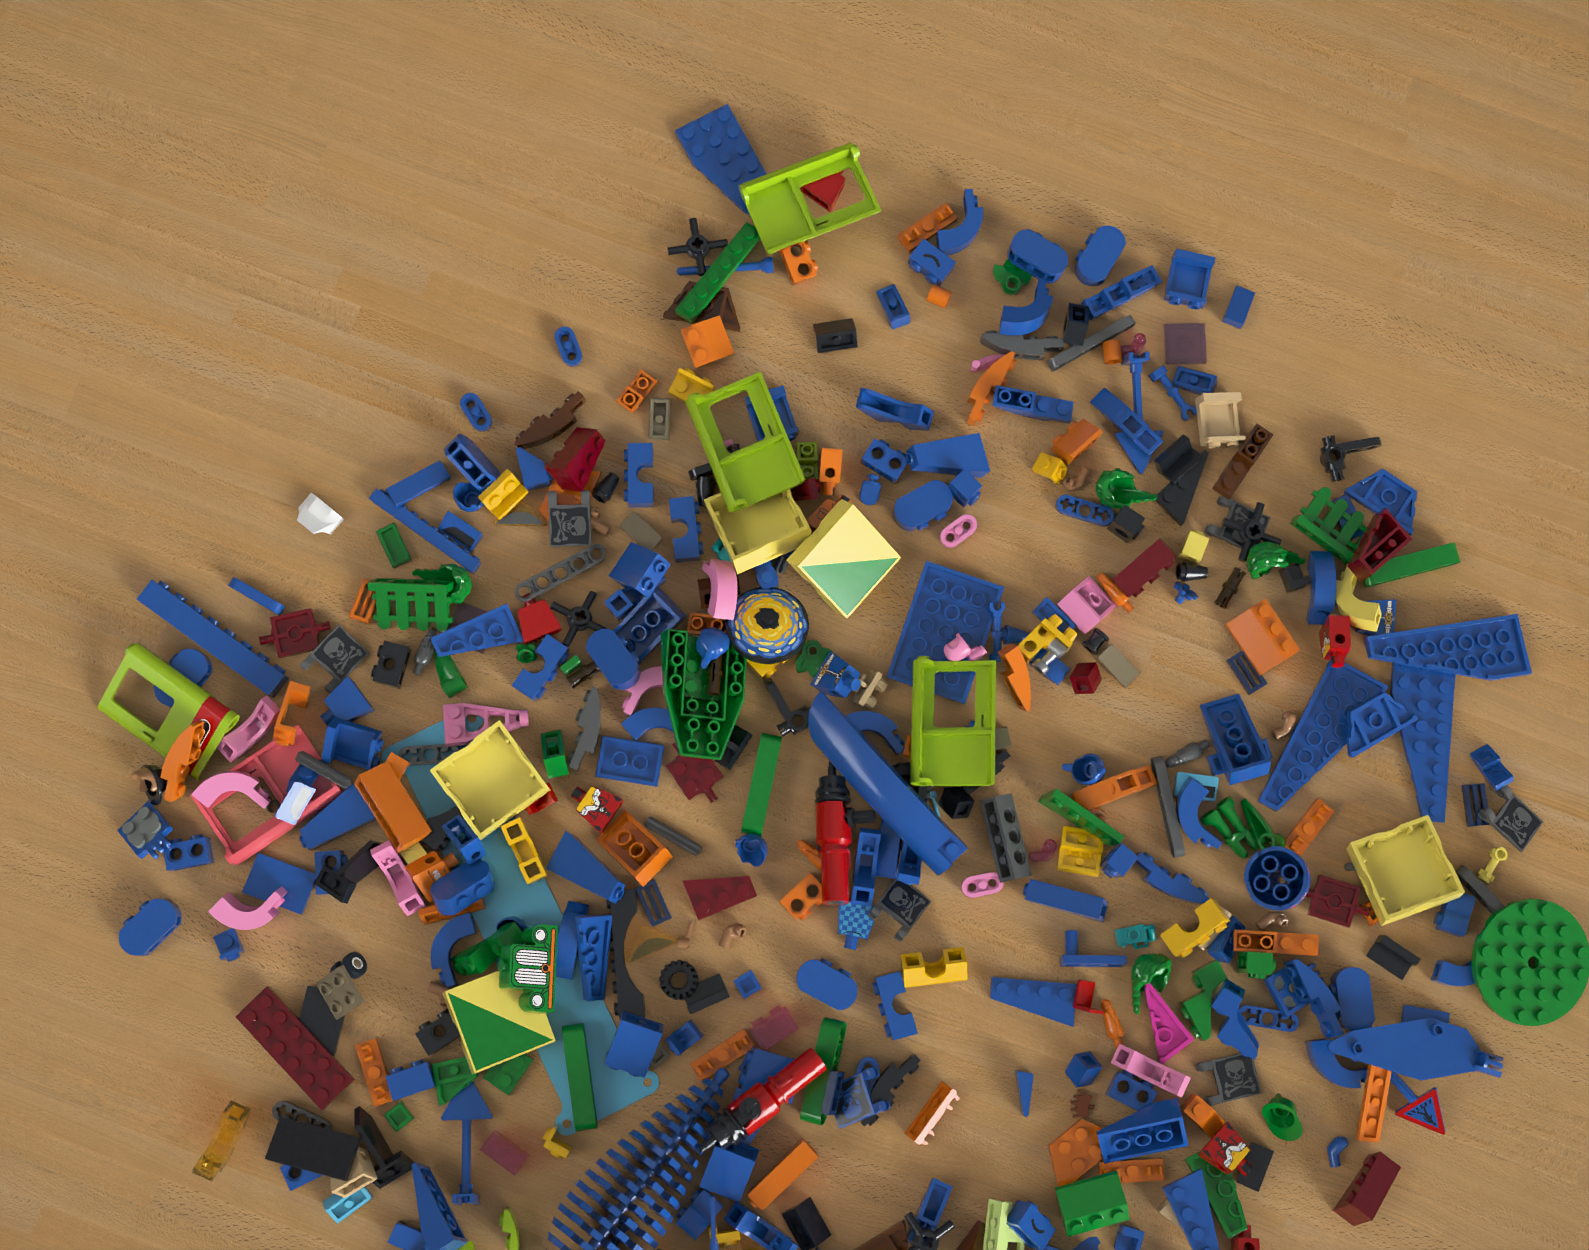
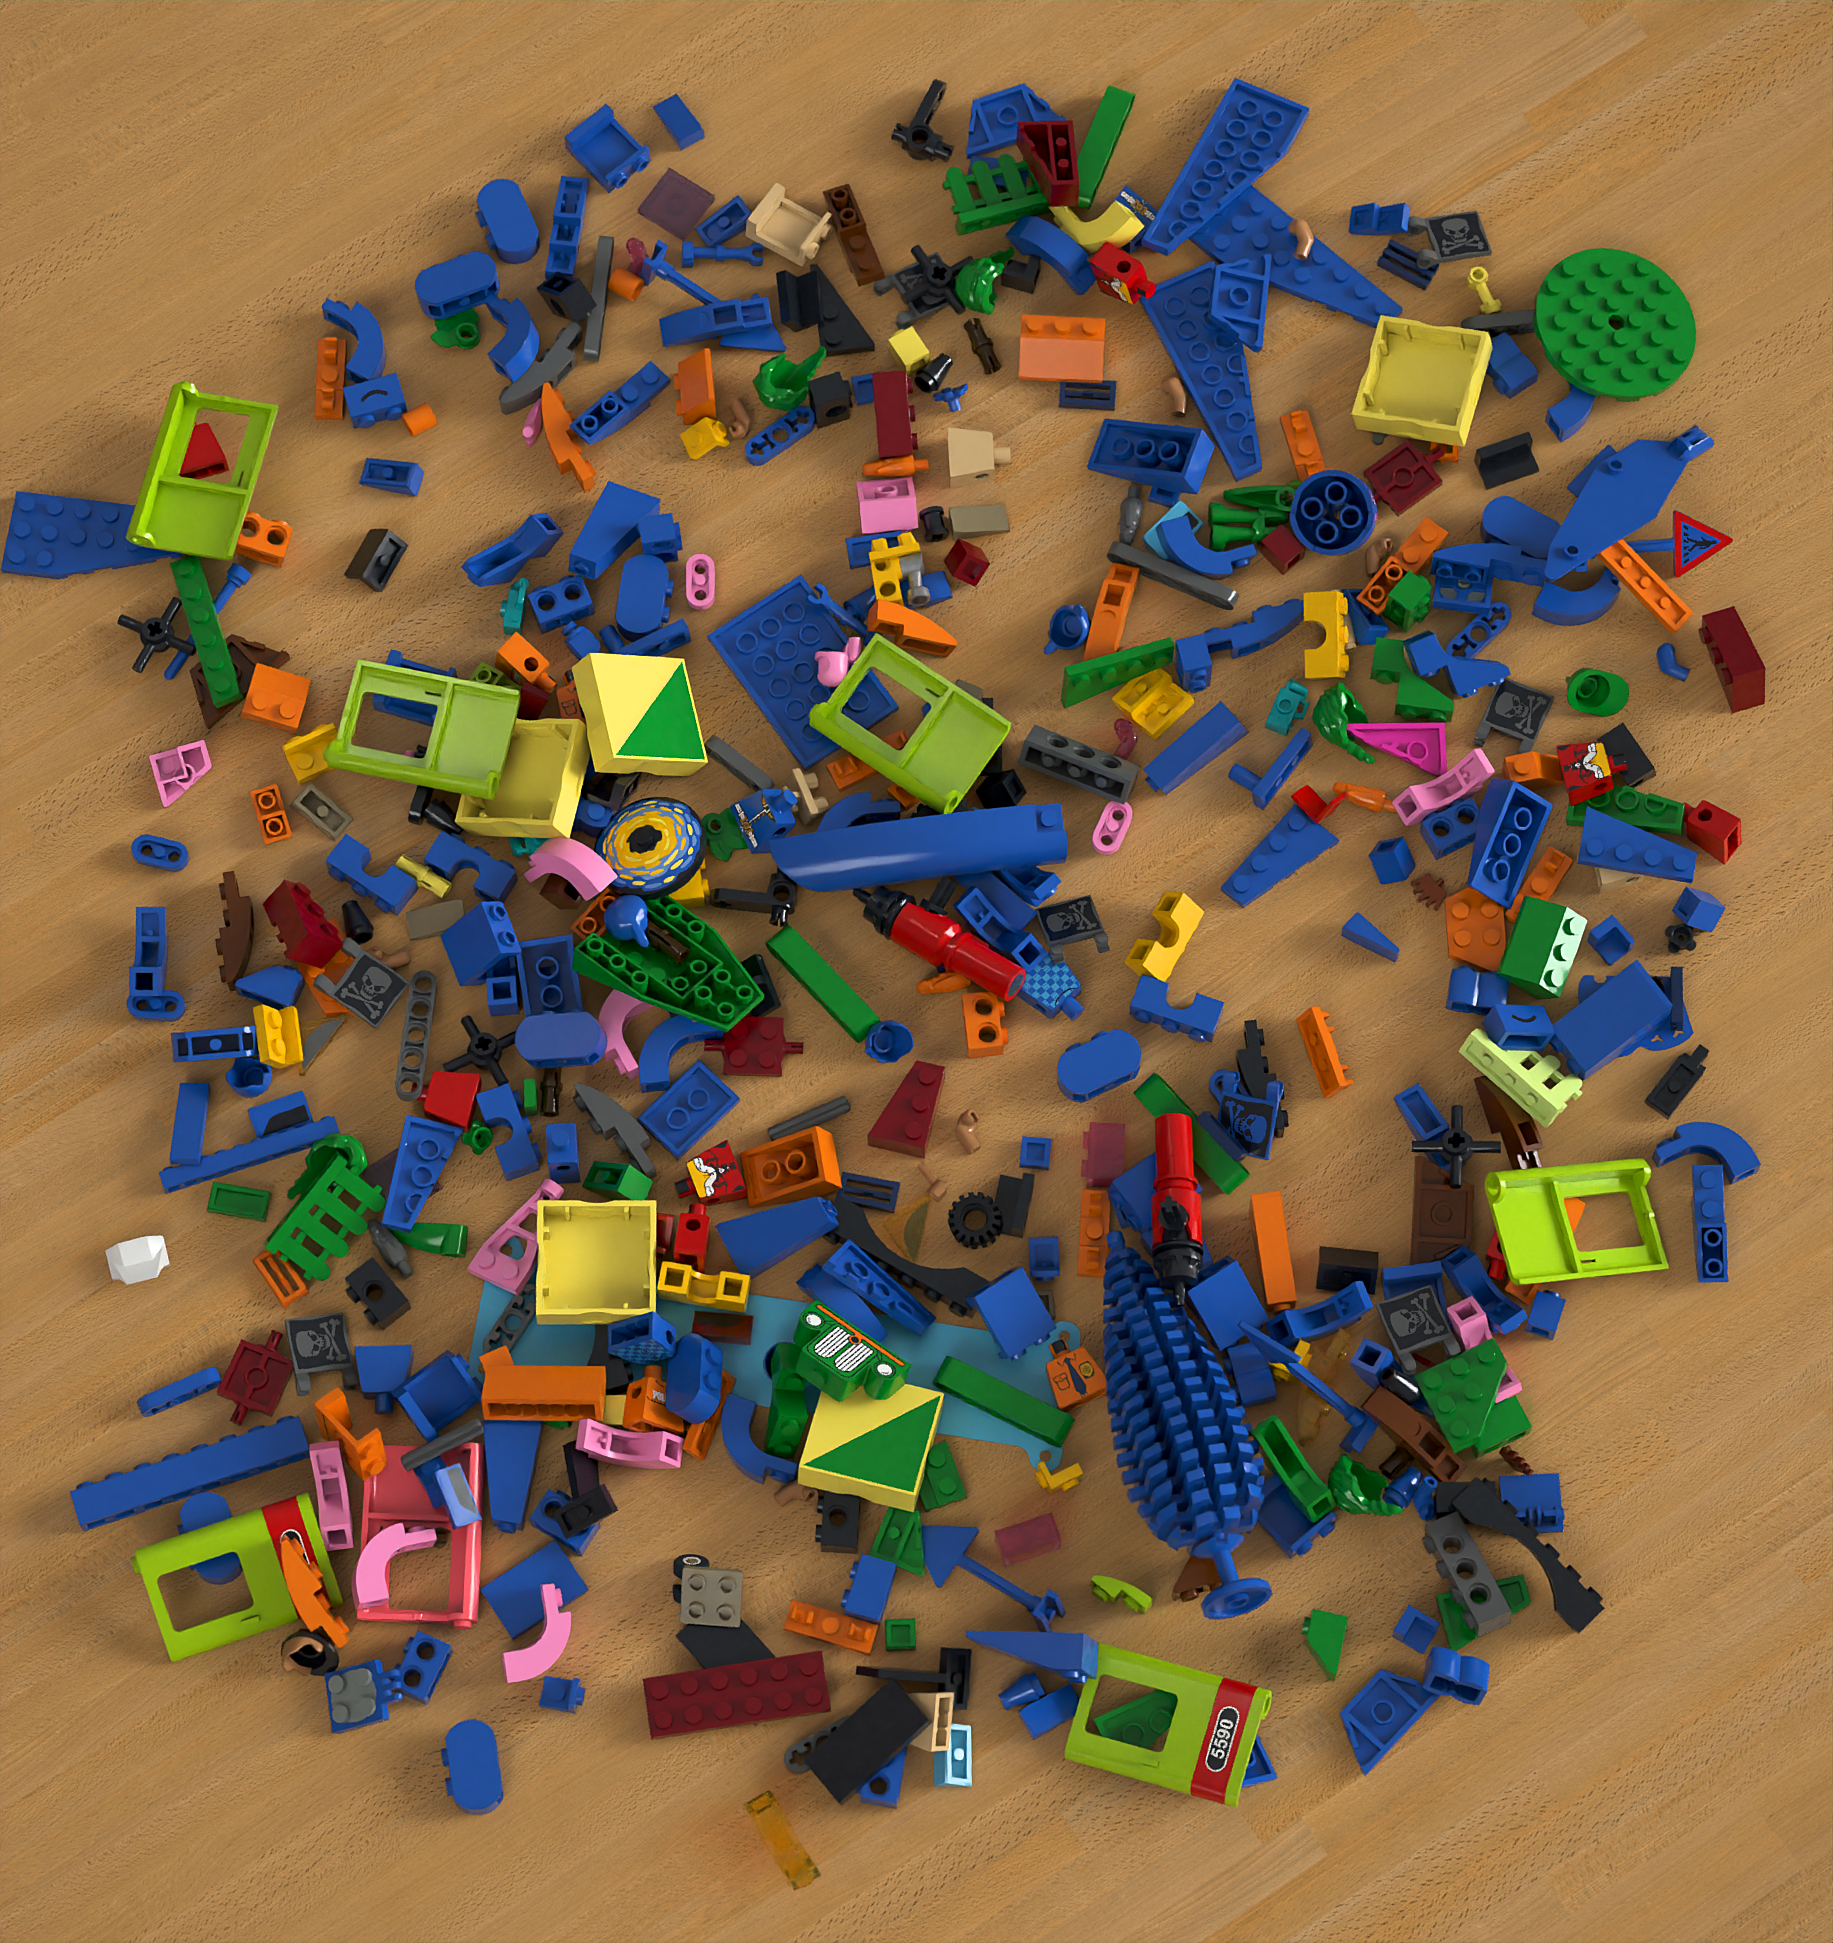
camera: 45 degrees left, 10 degrees down
(409, 1214) = (1023, 1691): none -> blue cone
(494, 392) = (151, 953): none -> blue arch
(511, 877) = (723, 1327): none -> clear red slope
(541, 828) = (693, 1238): none -> red torso
(550, 708) = (563, 1150): none -> blue torso
(623, 1108) = (1073, 1377): none -> orange torso
(626, 319) = (179, 769): none -> bright pink slope
(661, 505) = (424, 876): none -> light yellow pin
(787, 577) = (615, 791): none -> black panel
(860, 637) = (737, 764): none -> dark grey beam
(863, 436) = (515, 607): none -> teal piece
(892, 530) = (652, 645): none -> blue piece
(903, 703) = (851, 770): none -> orange plate
(1036, 1181) = (1475, 991): none -> blue brick
(1151, 536) = (863, 389): none -> blue tile
(1155, 633) = (973, 456): none -> tan torso
(1233, 861) = (1282, 549): none -> dark red panel
(1445, 730) = (1304, 235): none -> medium nougat arm

